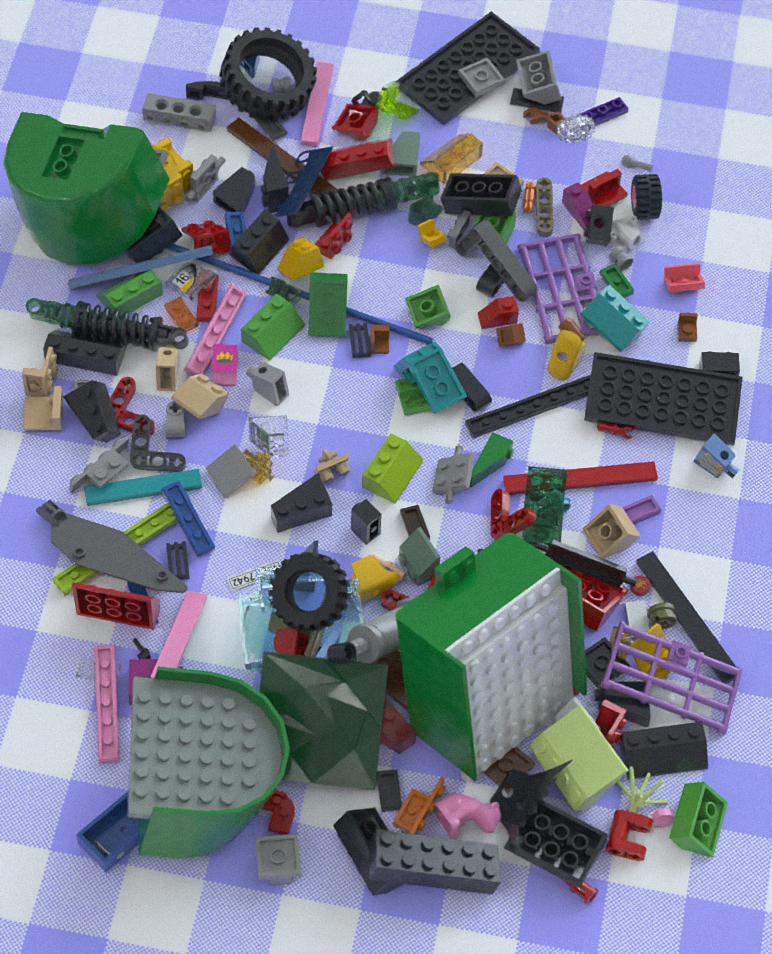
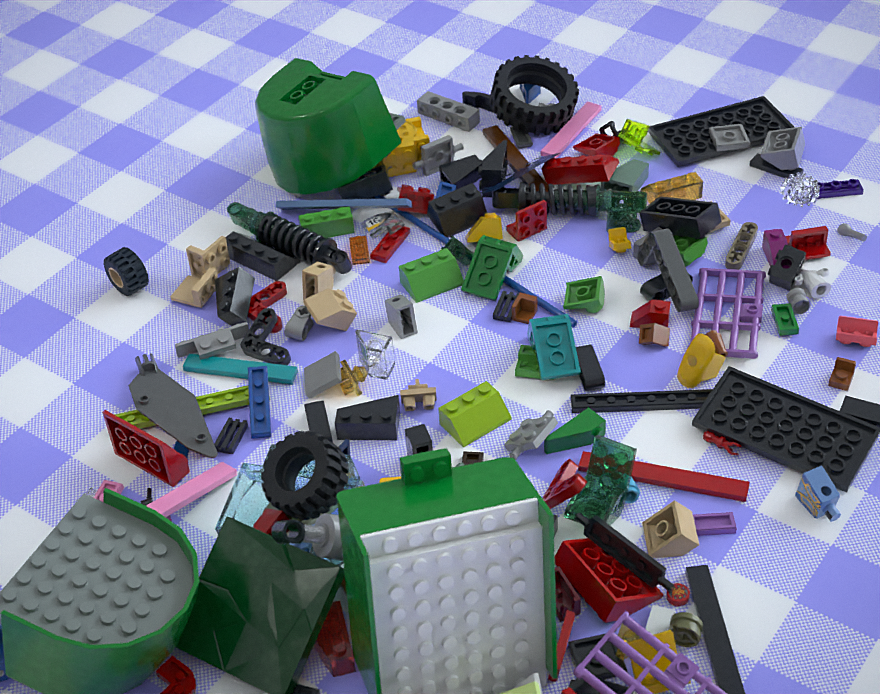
camera: 30 degrees right, 15 degrees down
(215, 330) = (380, 267): bright pink tile -> none
(224, 364) = (373, 292): piece -> none
(255, 524) = (318, 419): none -> black beam
(529, 197) = (730, 235): orange axle -> none
(552, 119) = (771, 177): dark orange piece -> none
(615, 318) = (765, 344): teal slope -> none
(646, 196) = (845, 254): black wheel -> none

